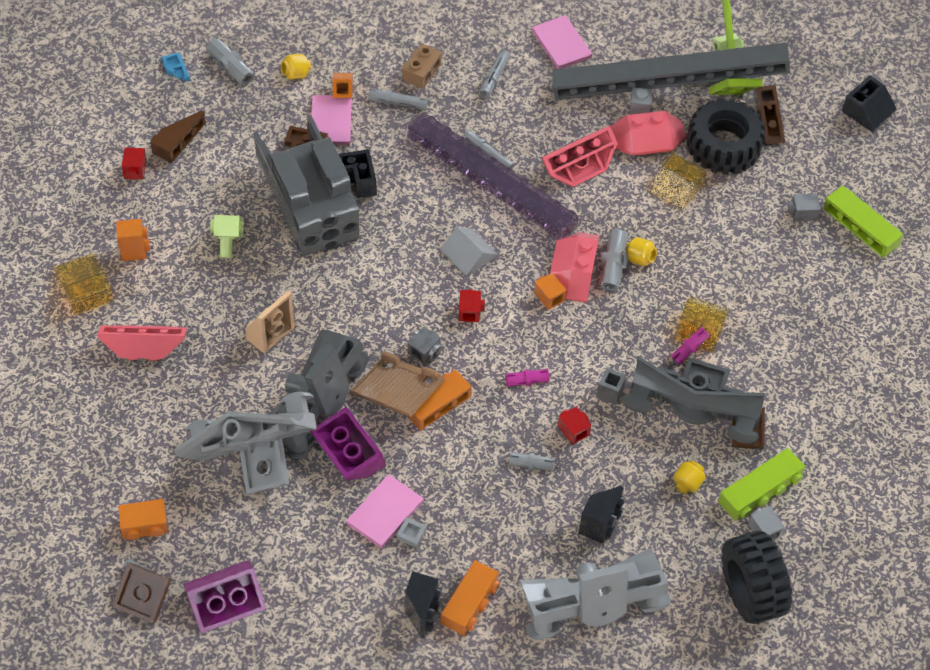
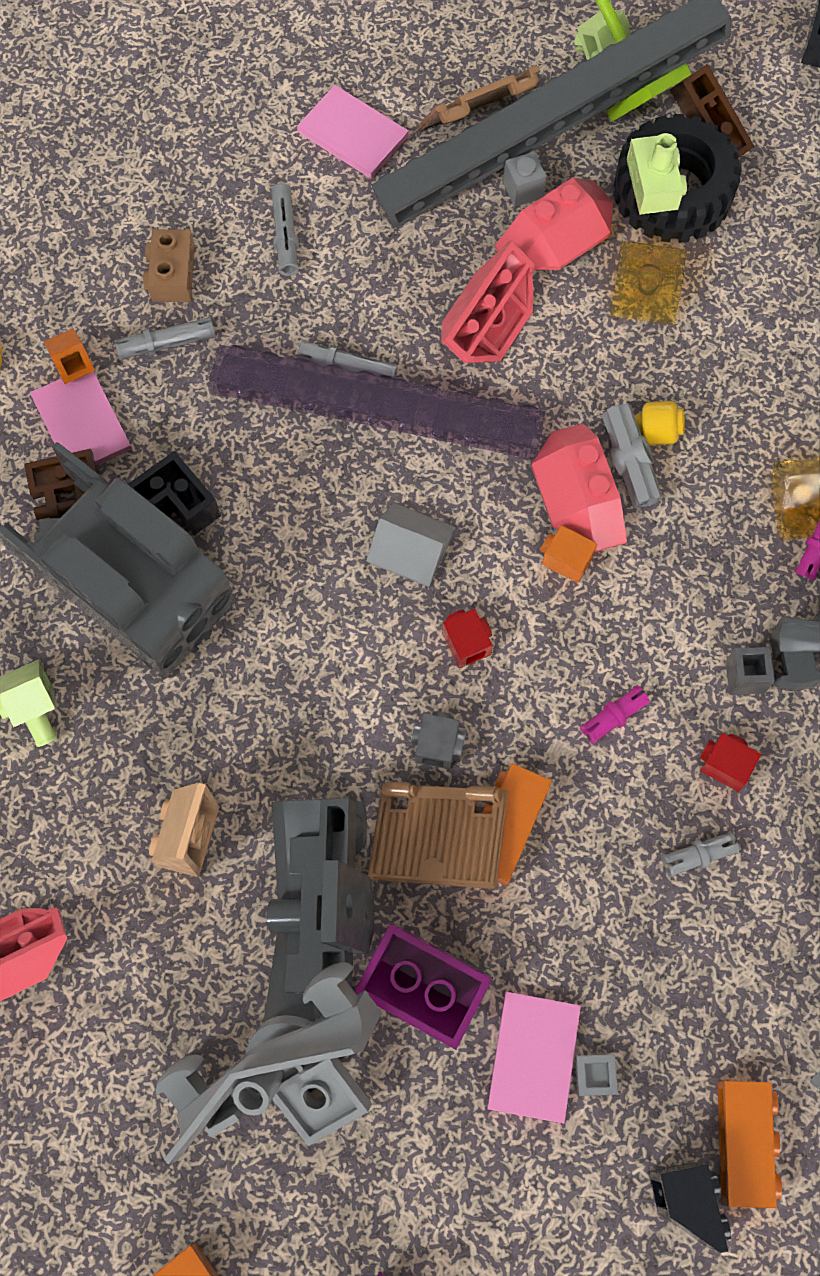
camera: 25 degrees left, 15 degrees up
(635, 50) = (465, 103): none -> medium nougat window
(705, 123) = (655, 173): none -> yellowish green brick

